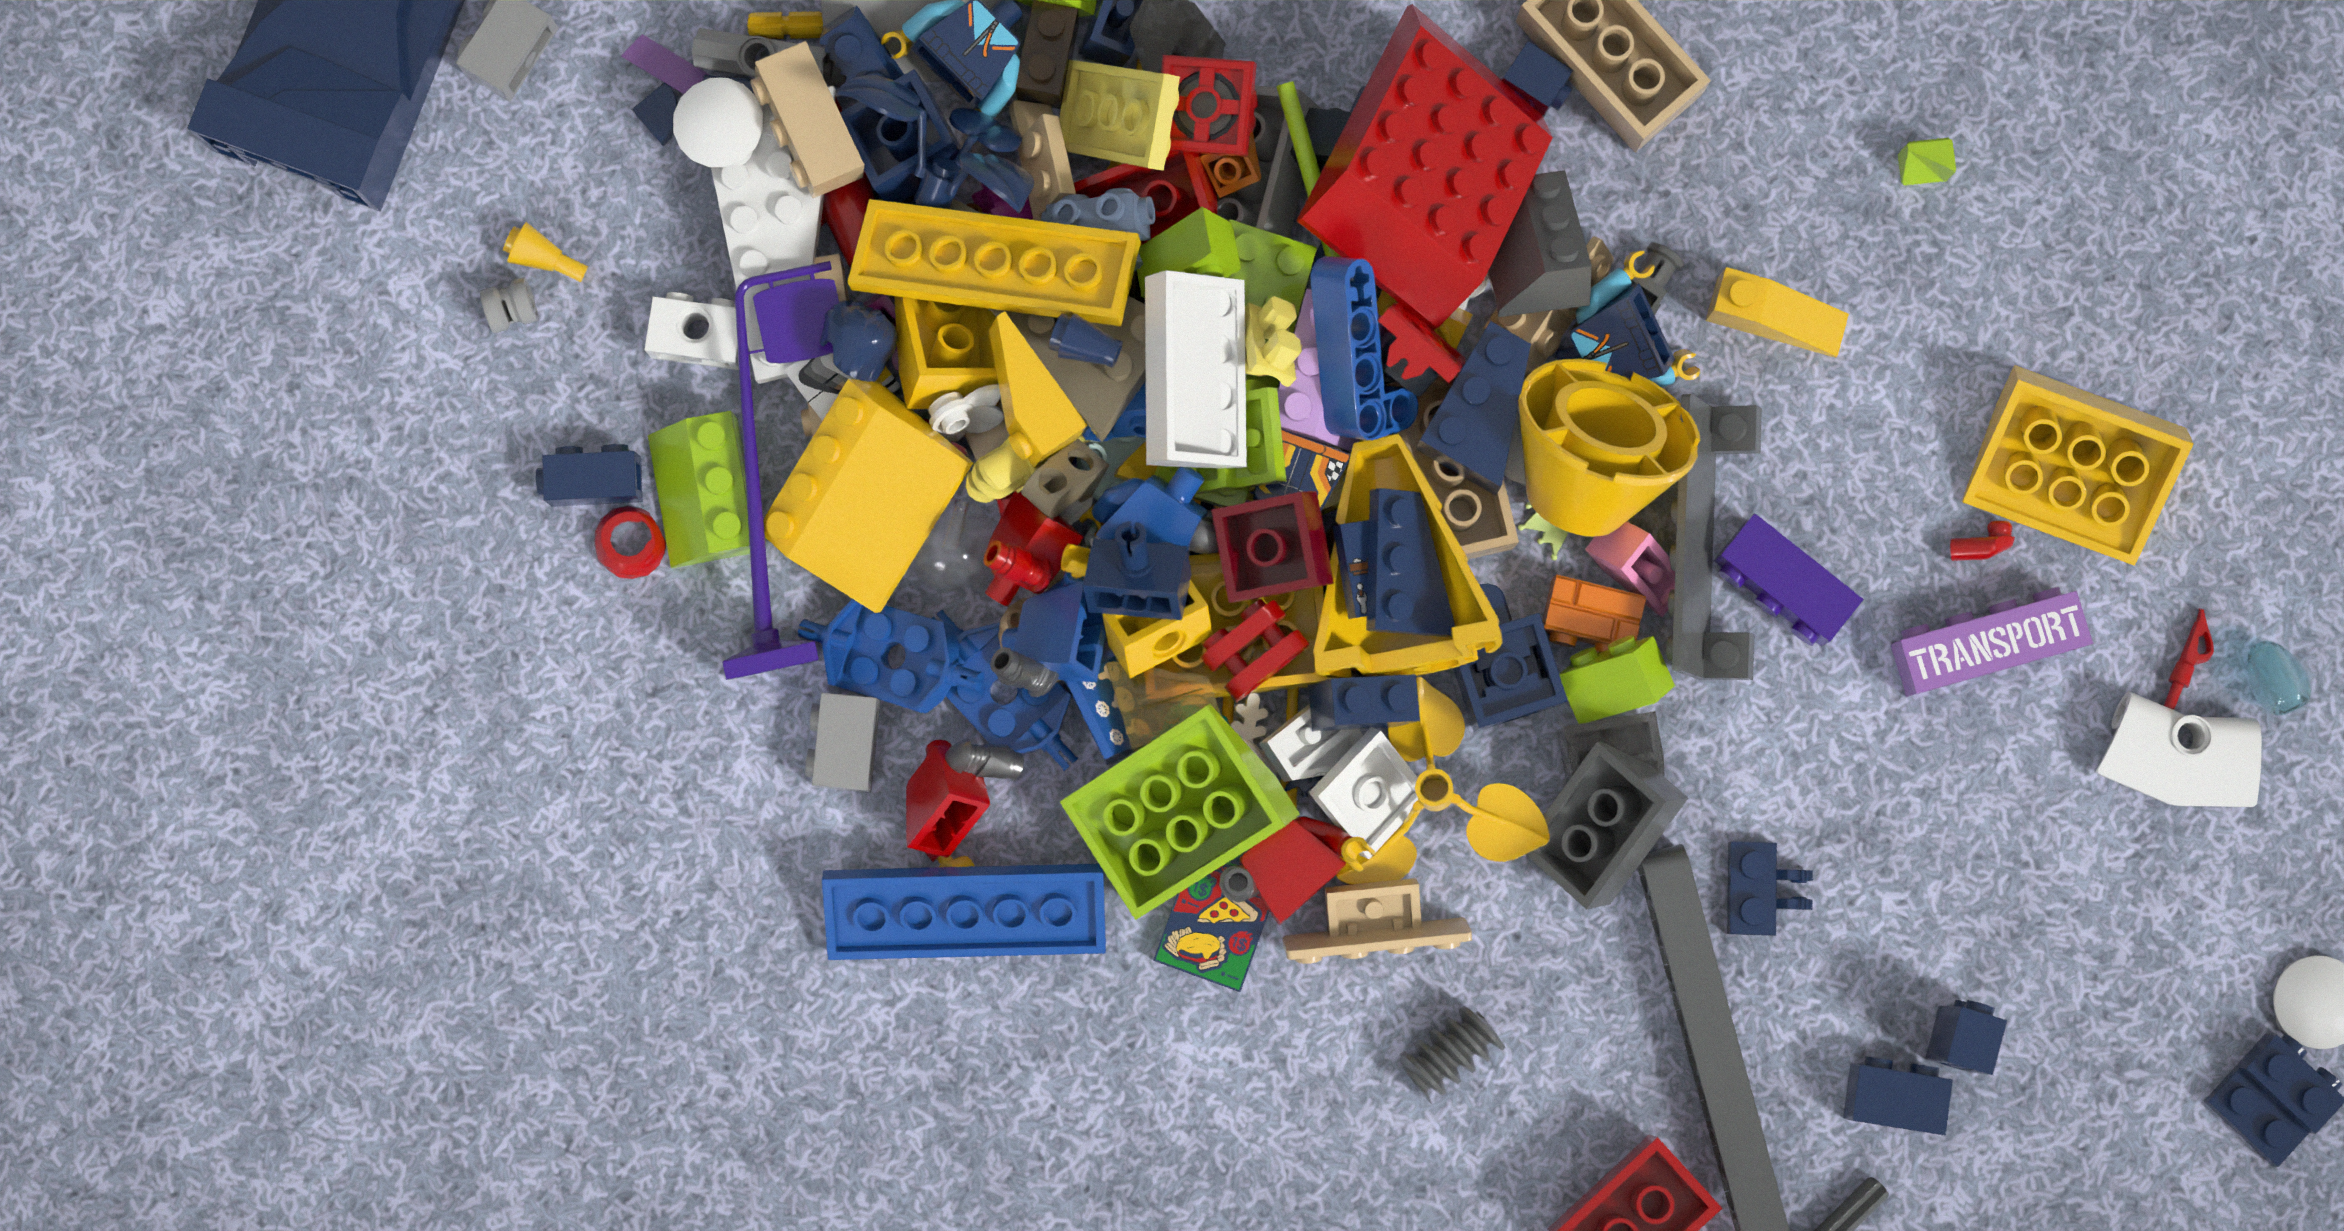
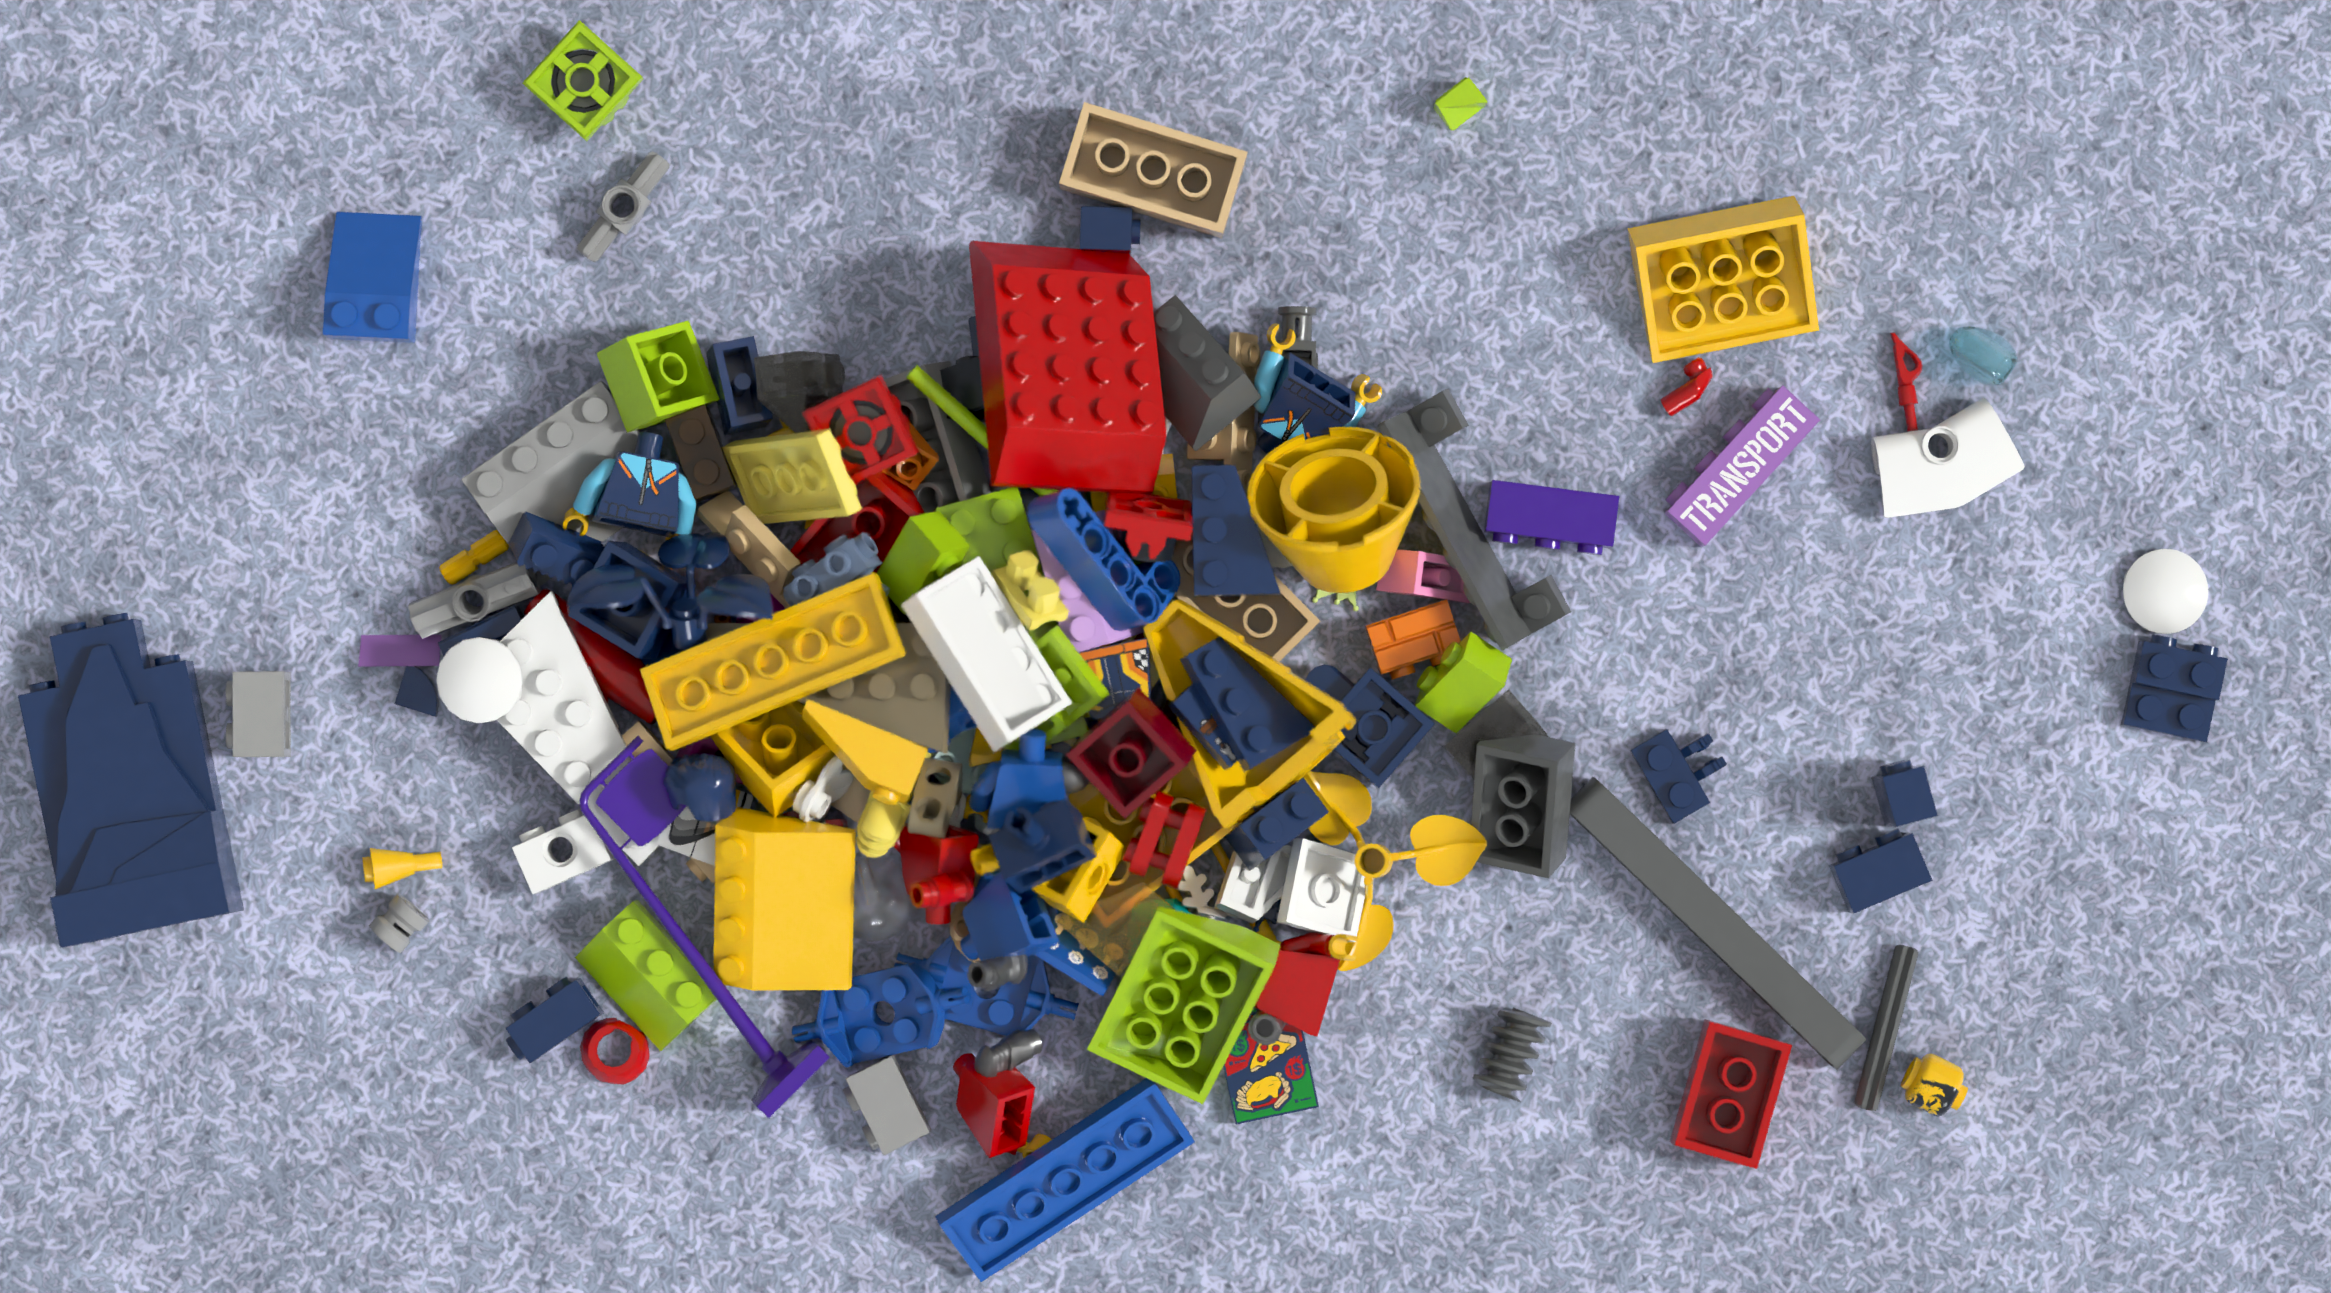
camera: 25 degrees left, 5 degrees up
(807, 120) = (550, 636): tan brick -> none
(1082, 341) = (885, 686): dark blue cone -> none
(1375, 919) = (1389, 986): tan bracket -> none
(1775, 312) = (1415, 302): yellow slope -> none

